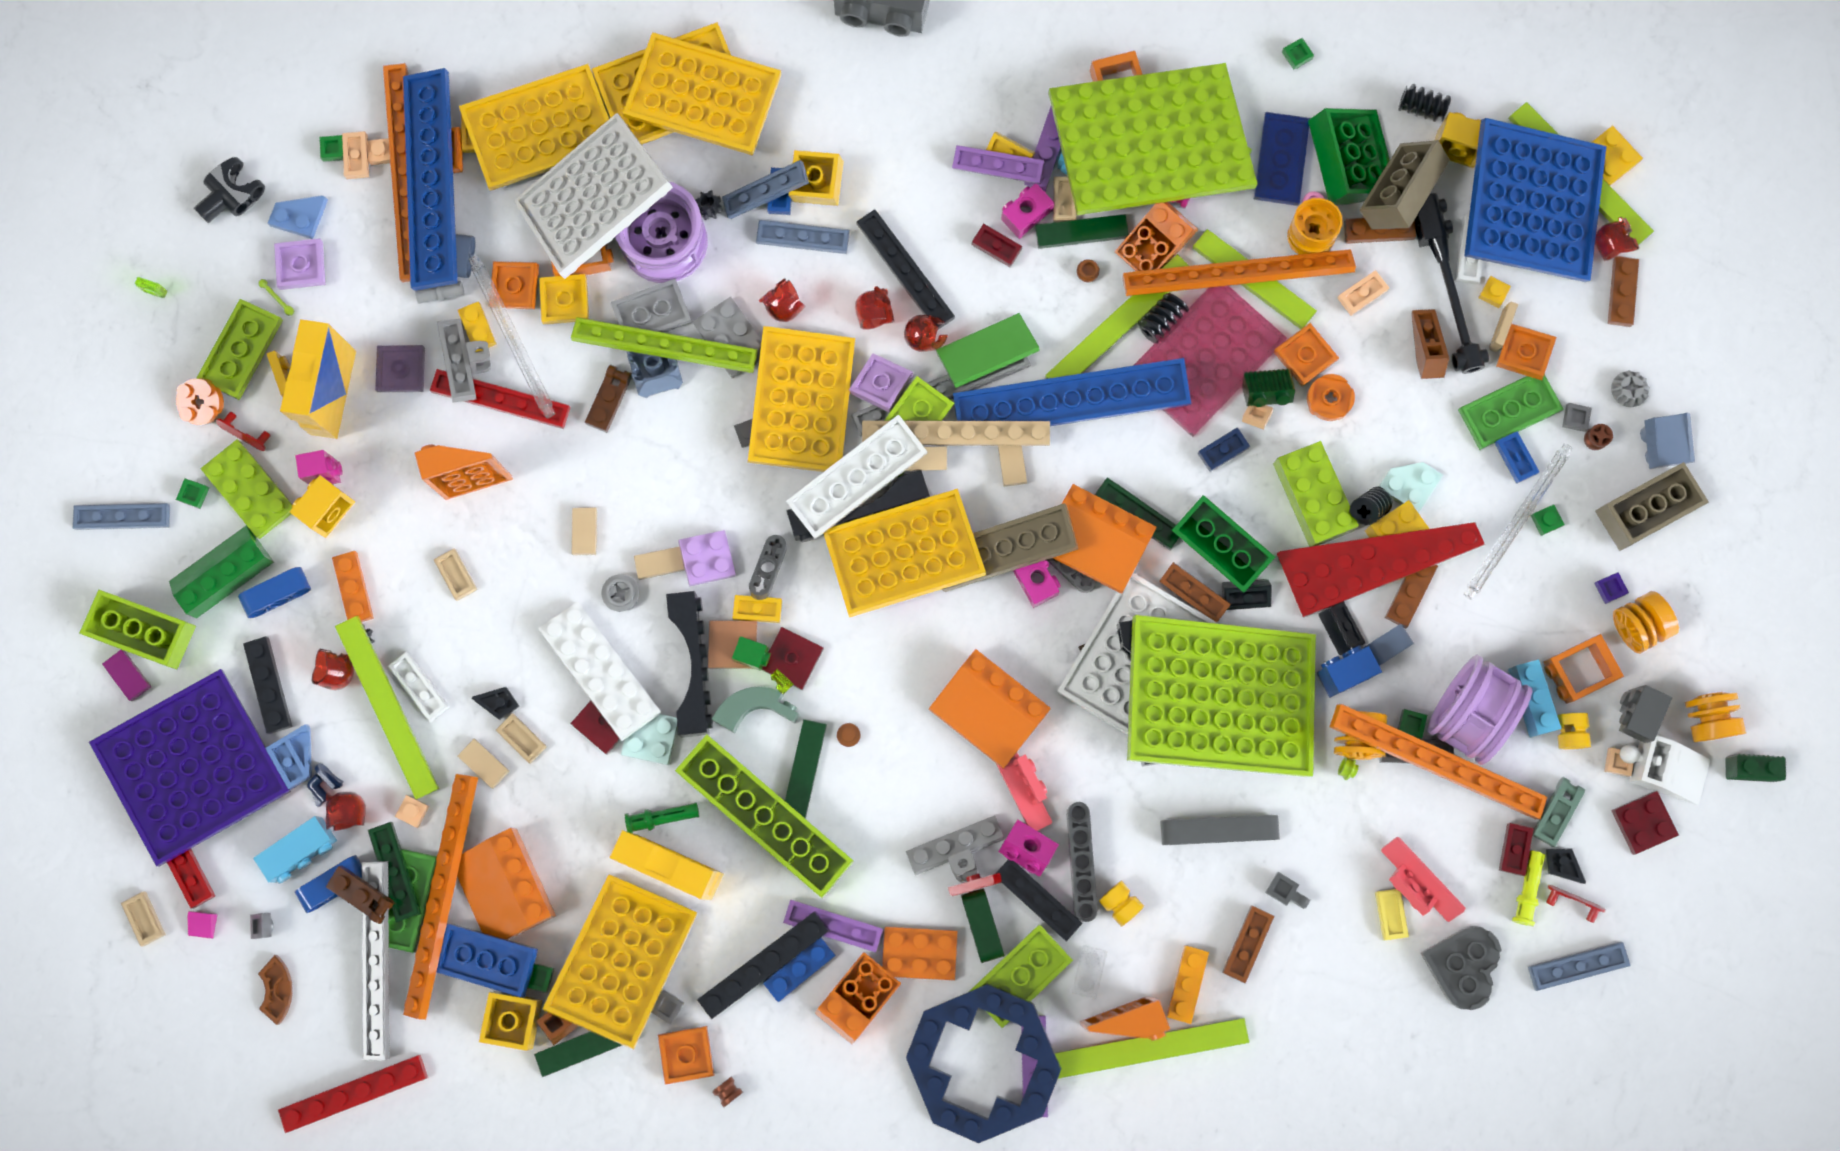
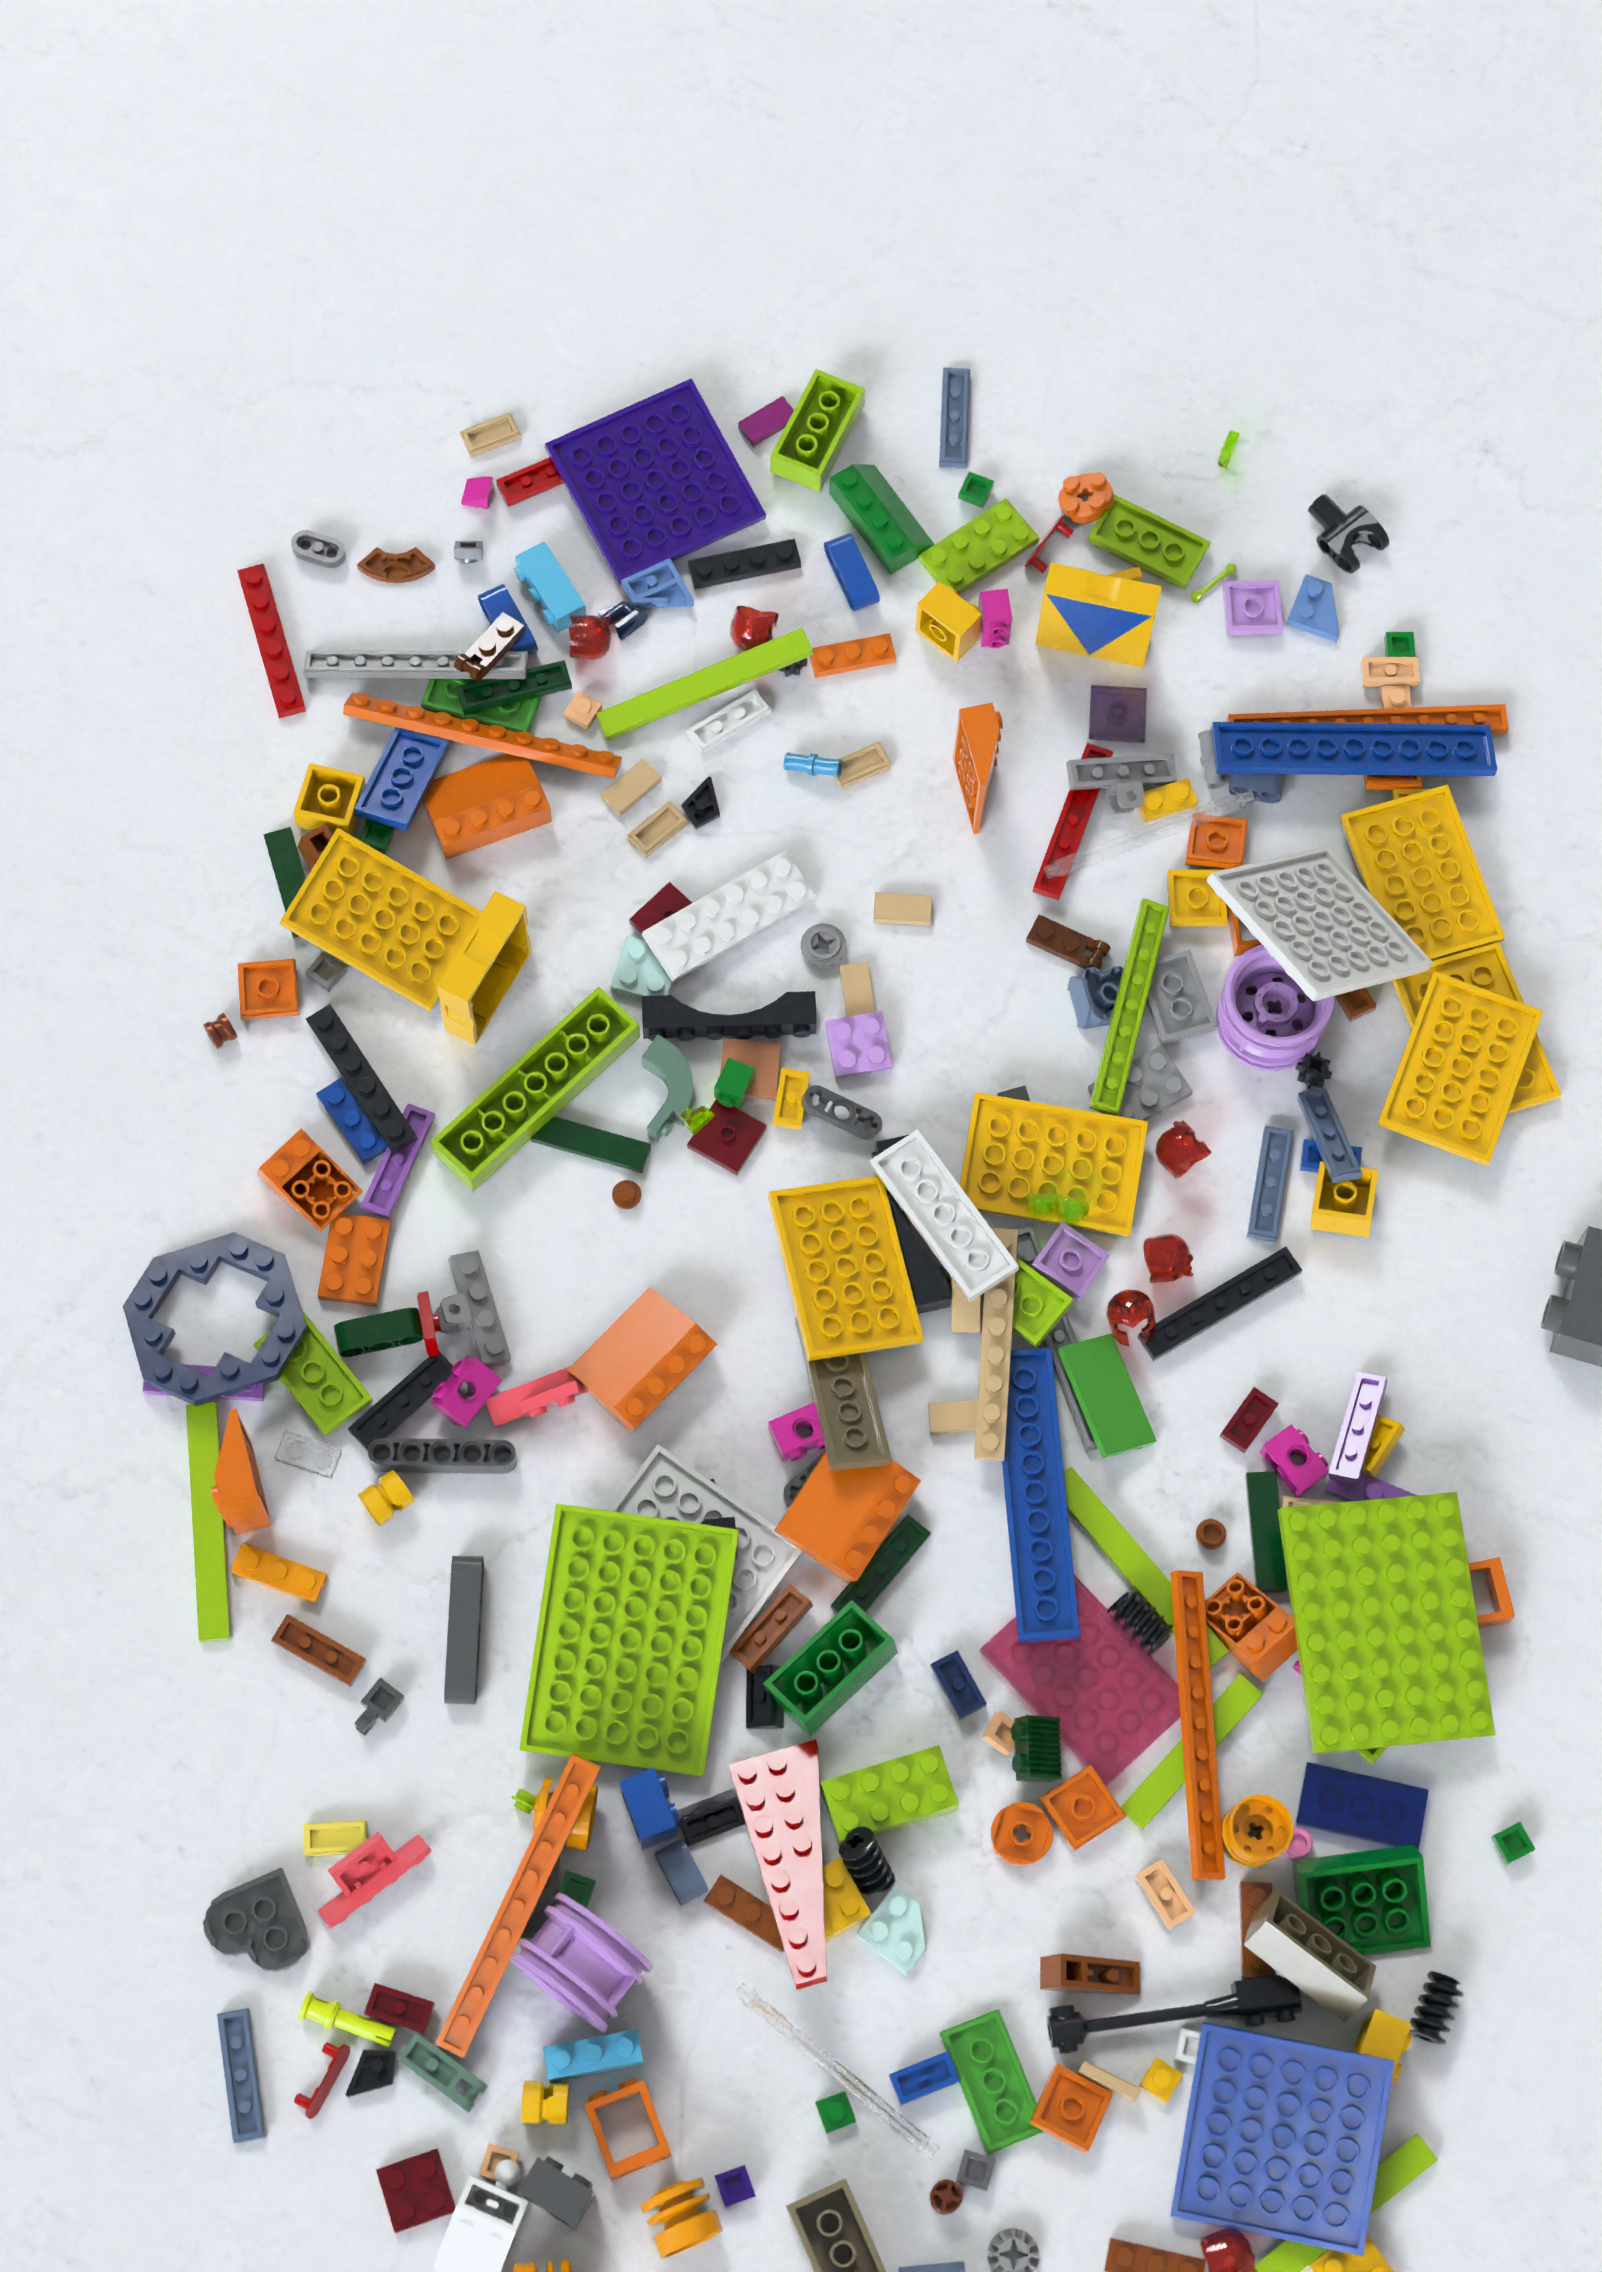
camera: 90 degrees right, 10 degrees down
(261, 1060) = (319, 548): none -> flat silver plate
(457, 612) = (812, 764): none -> dark azure pin
(650, 819) = (546, 964): green pin -> none
(841, 386) = (1067, 1207): none -> clear neon green slope

